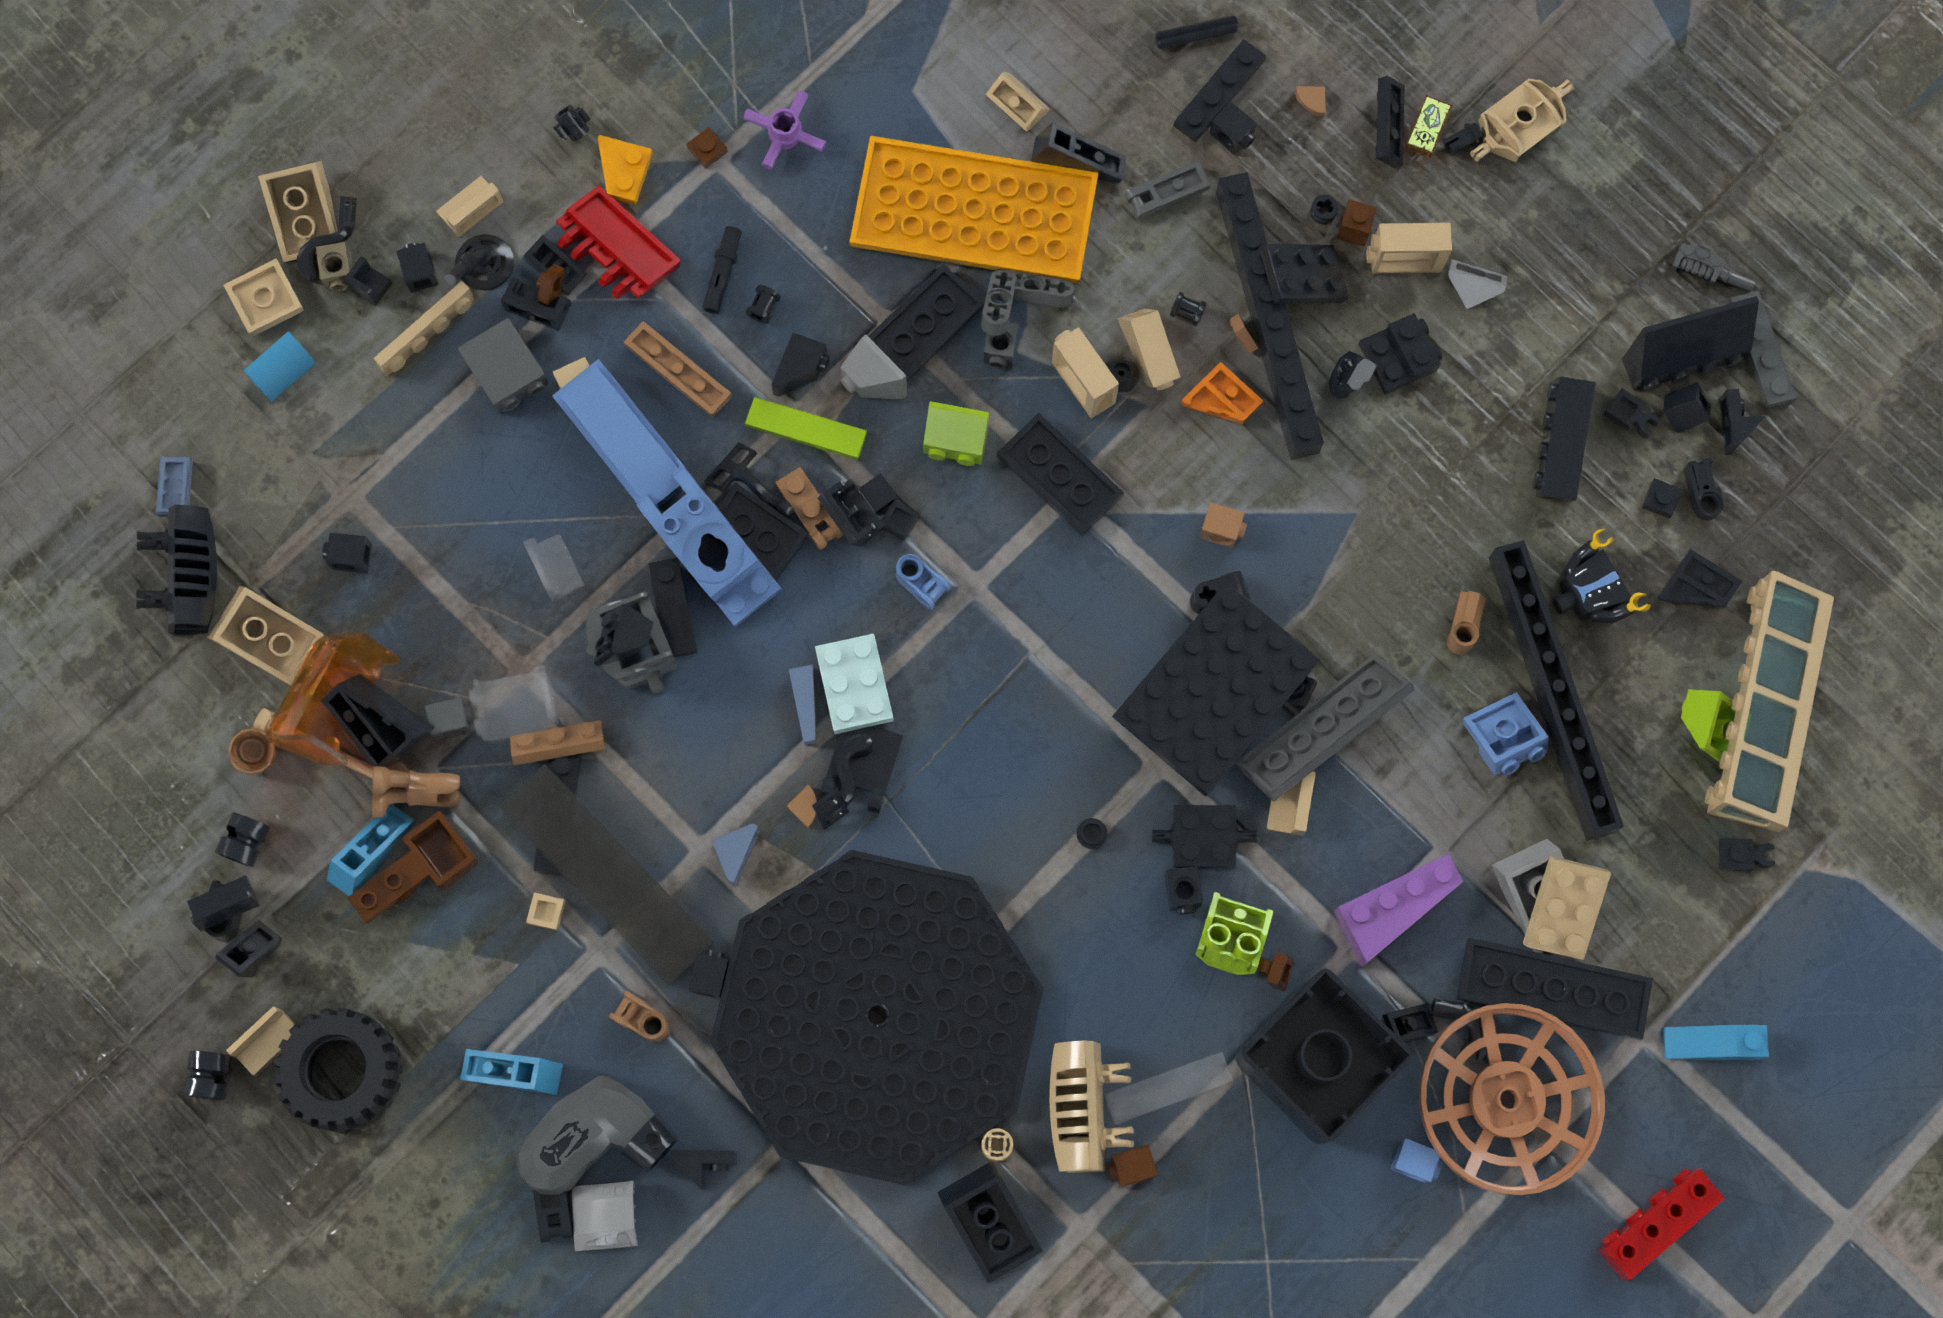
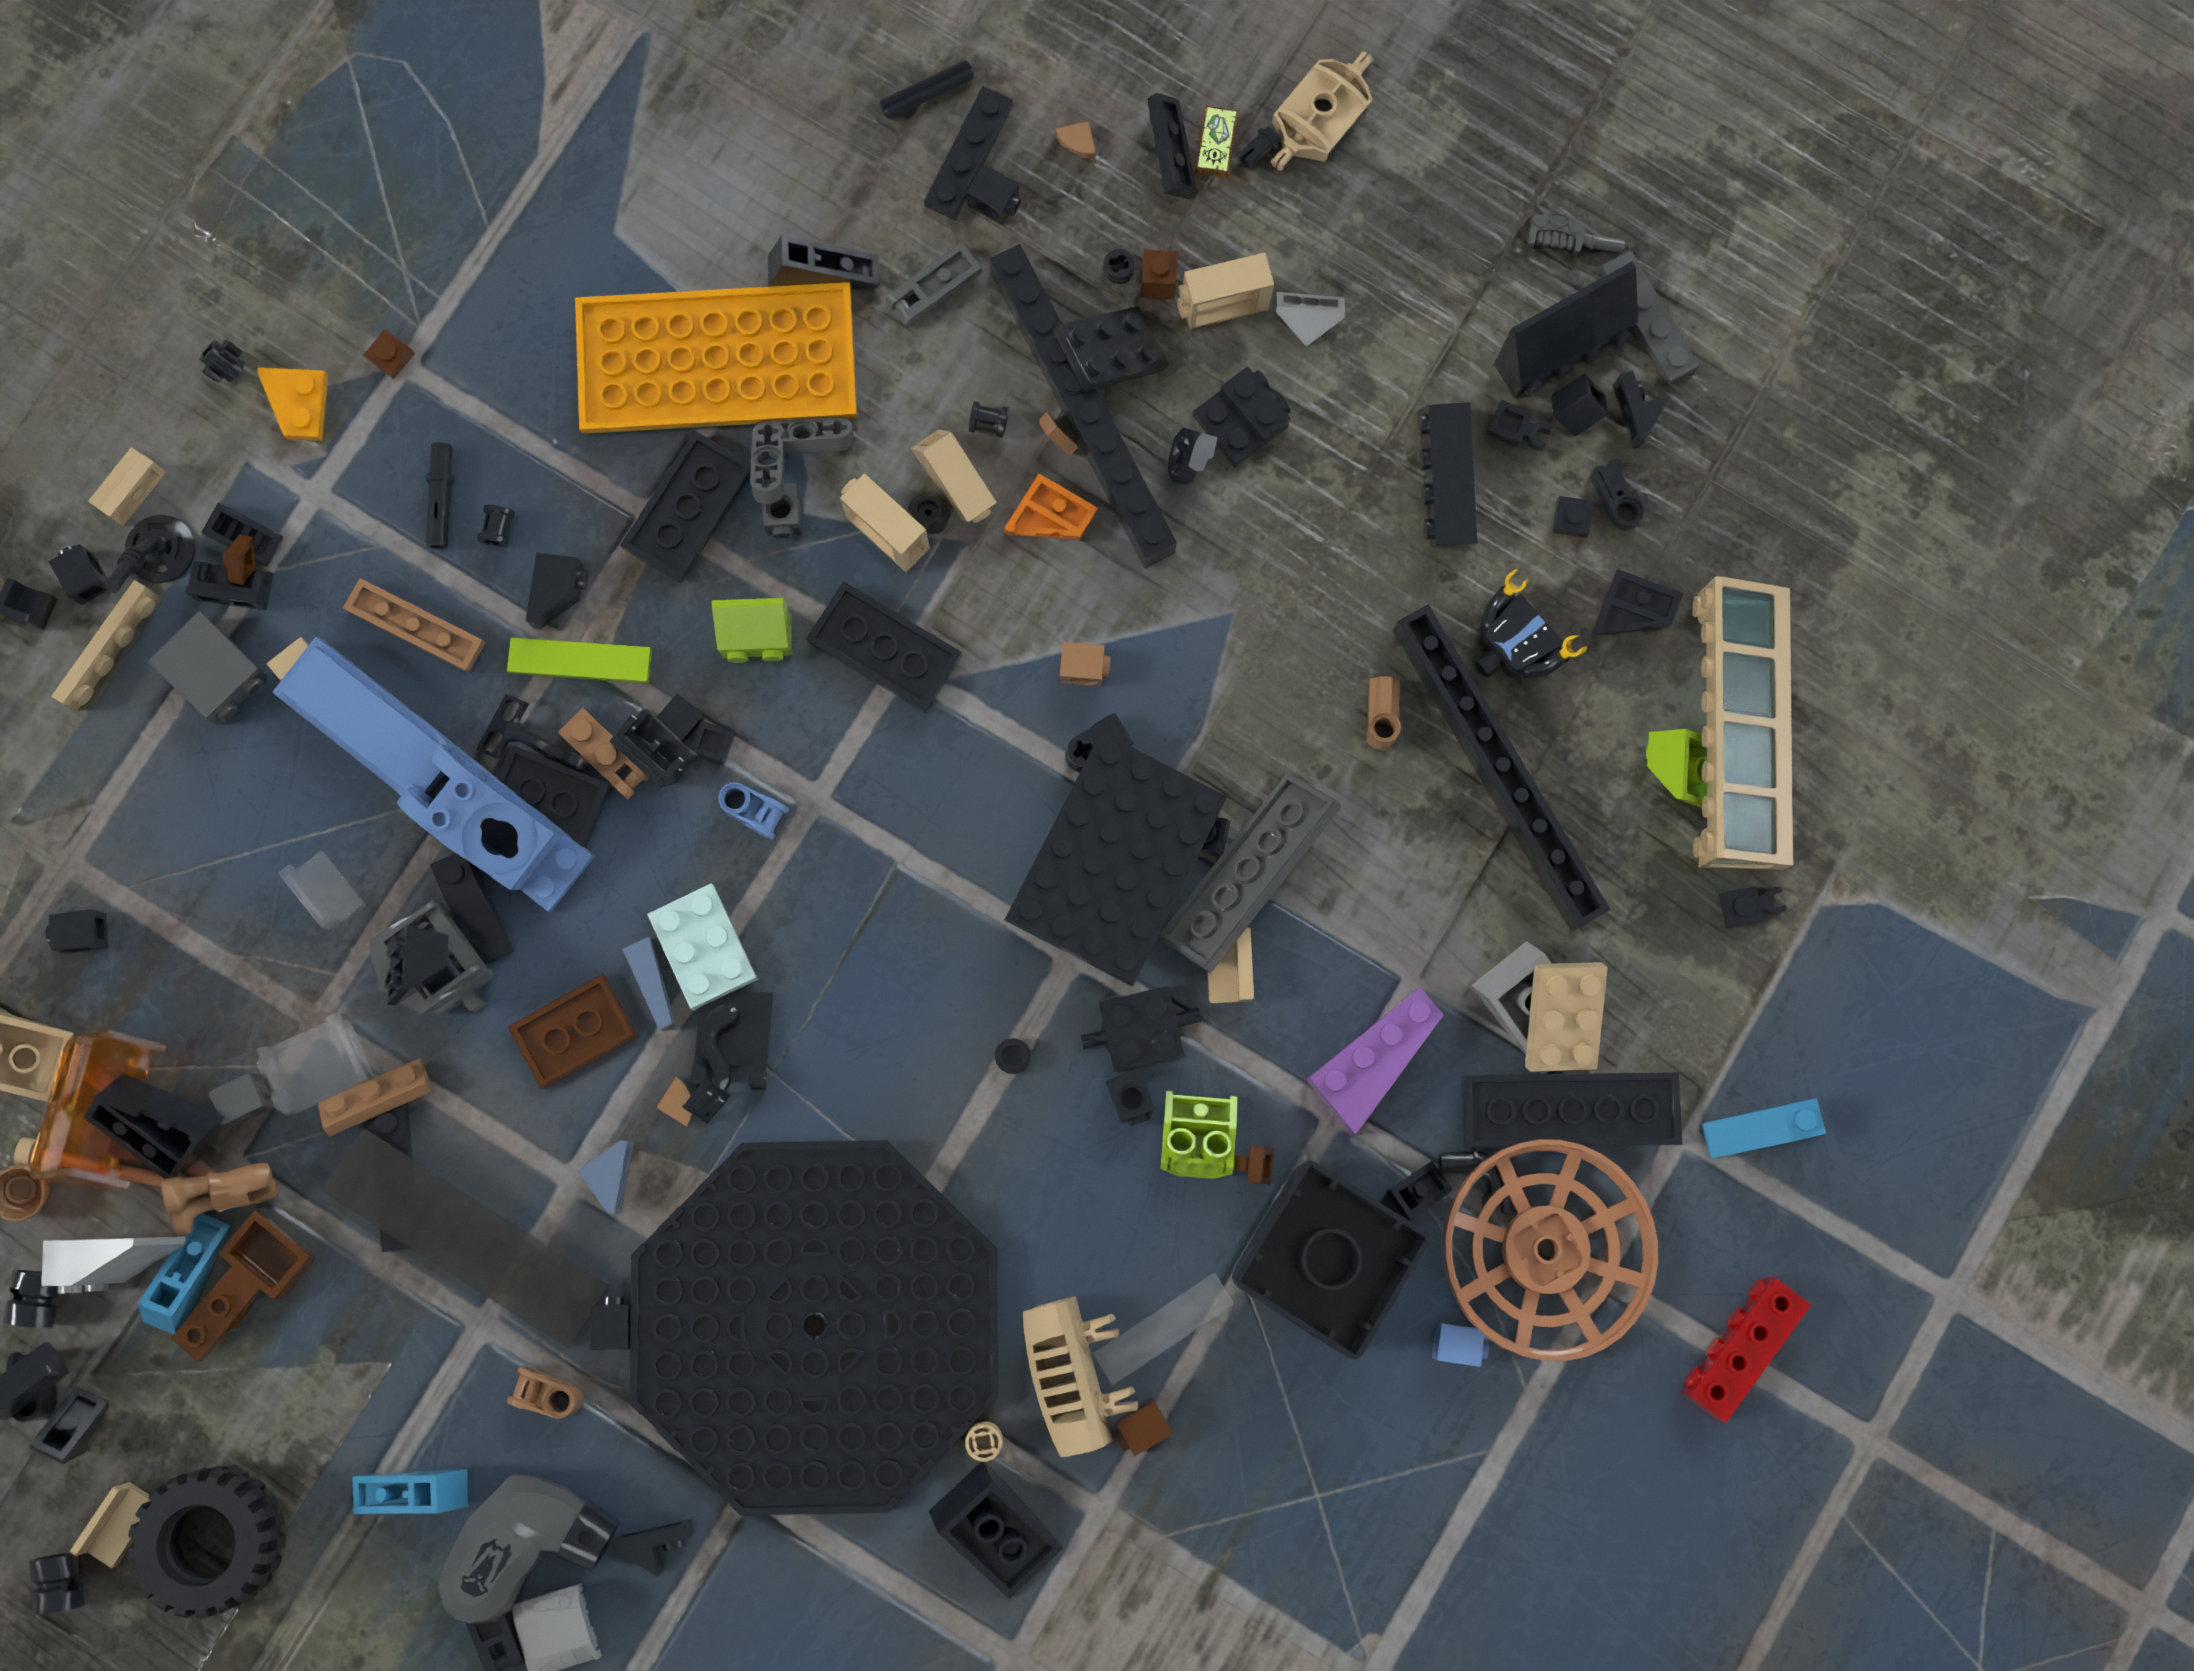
camera: 15 degrees left, 5 degrees up
(310, 820) = (101, 1261): none -> slope
(545, 911) = (406, 1296): tan plate -> none
(617, 237) = (304, 486): red hinge -> none
(731, 728) = (572, 1031): none -> reddish brown tile
(778, 124) = (467, 302): medium lavender bar -> none
(872, 373) = (639, 580): light grey slope -> none
(1017, 101) = (738, 217): tan slope -> none
(1507, 734) = (1457, 831): medium blue plate -> none

